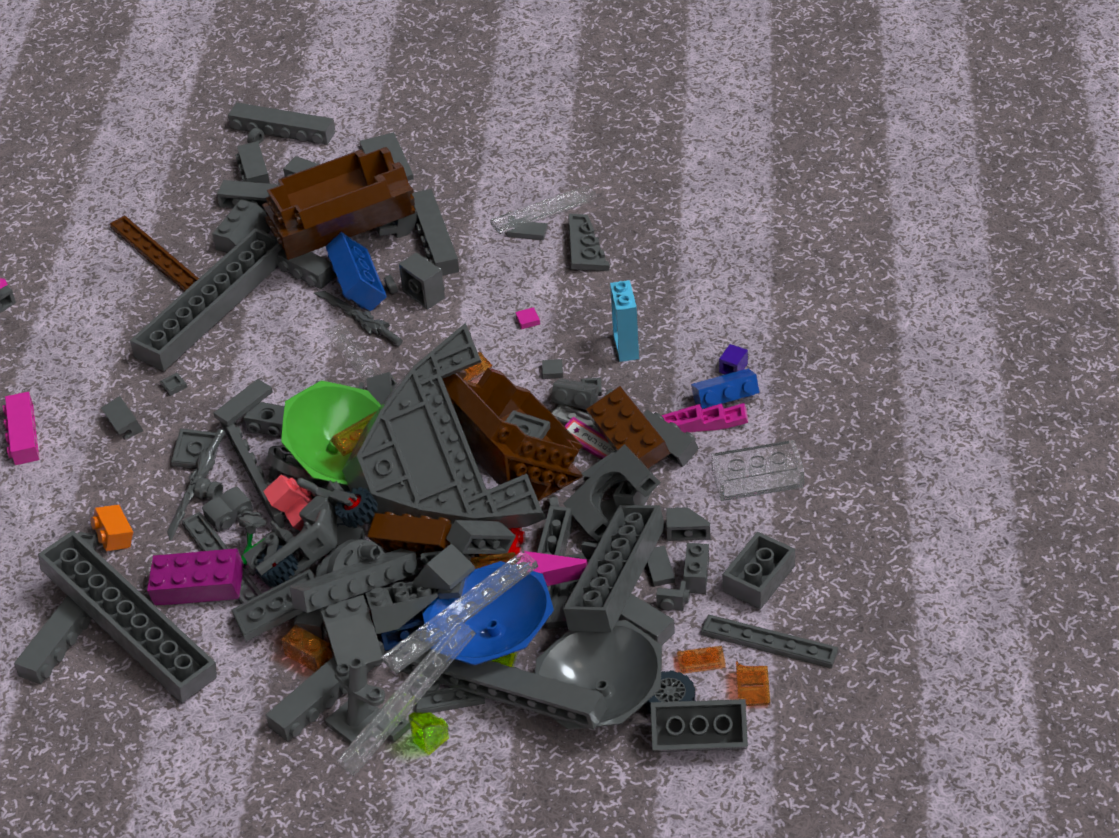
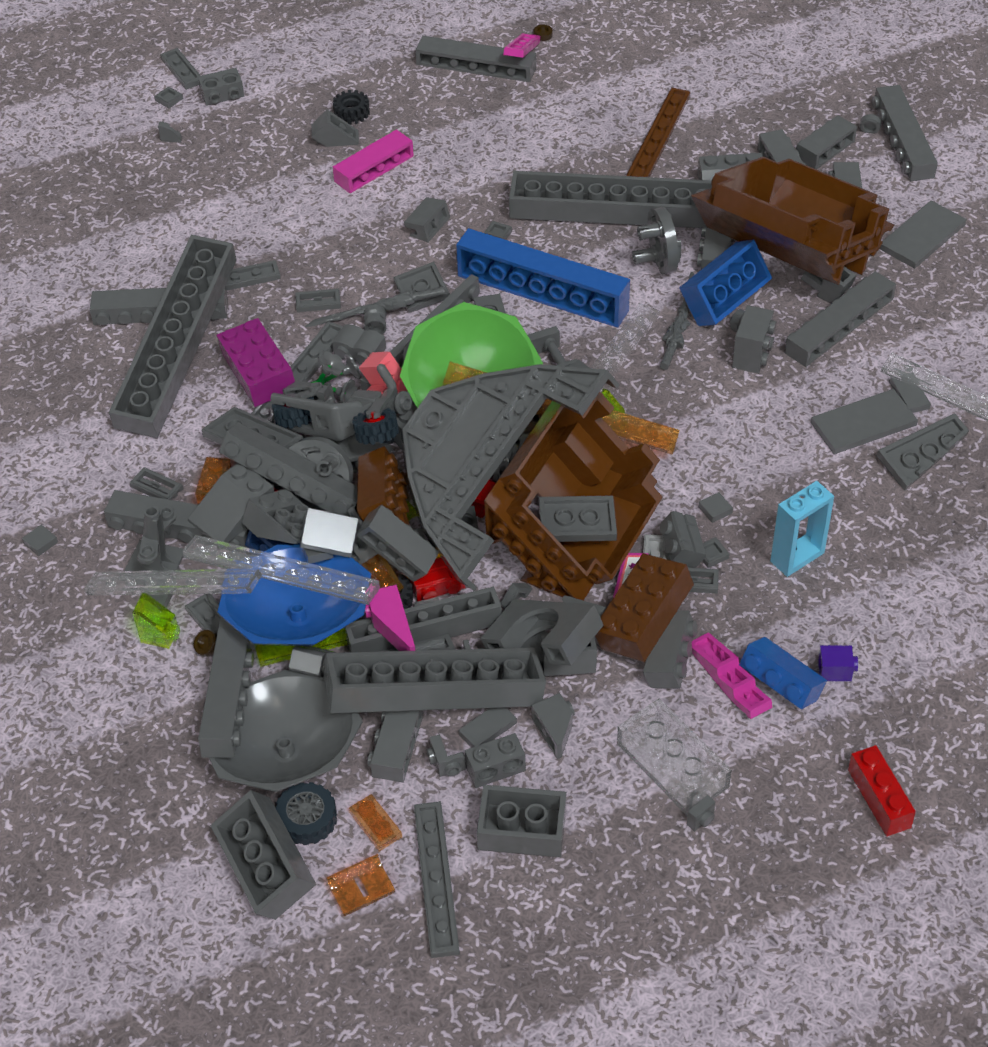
camera: 60 degrees right, 5 degrees up
(112, 527) = (286, 277): orange piece -> none
(152, 522) = (317, 302): none -> dark grey tile
(243, 402) = (488, 286): dark grey tile -> none
(269, 362) = (544, 277): none -> blue brick
(269, 792) = (40, 540): none -> dark grey tile
(272, 696) = (154, 488): none -> dark grey tile
(274, 286) = (664, 246): none -> dark grey piece
(466, 707) = (205, 643): none -> dark brown tile
(527, 318) = (776, 453): dark pink tile -> none
(534, 263) = (864, 421): none -> dark grey tile
(543, 640) = (308, 660): none -> brick
(810, 477) = (701, 814): none -> dark grey plate
(848, 380) = (881, 790): none -> red brick

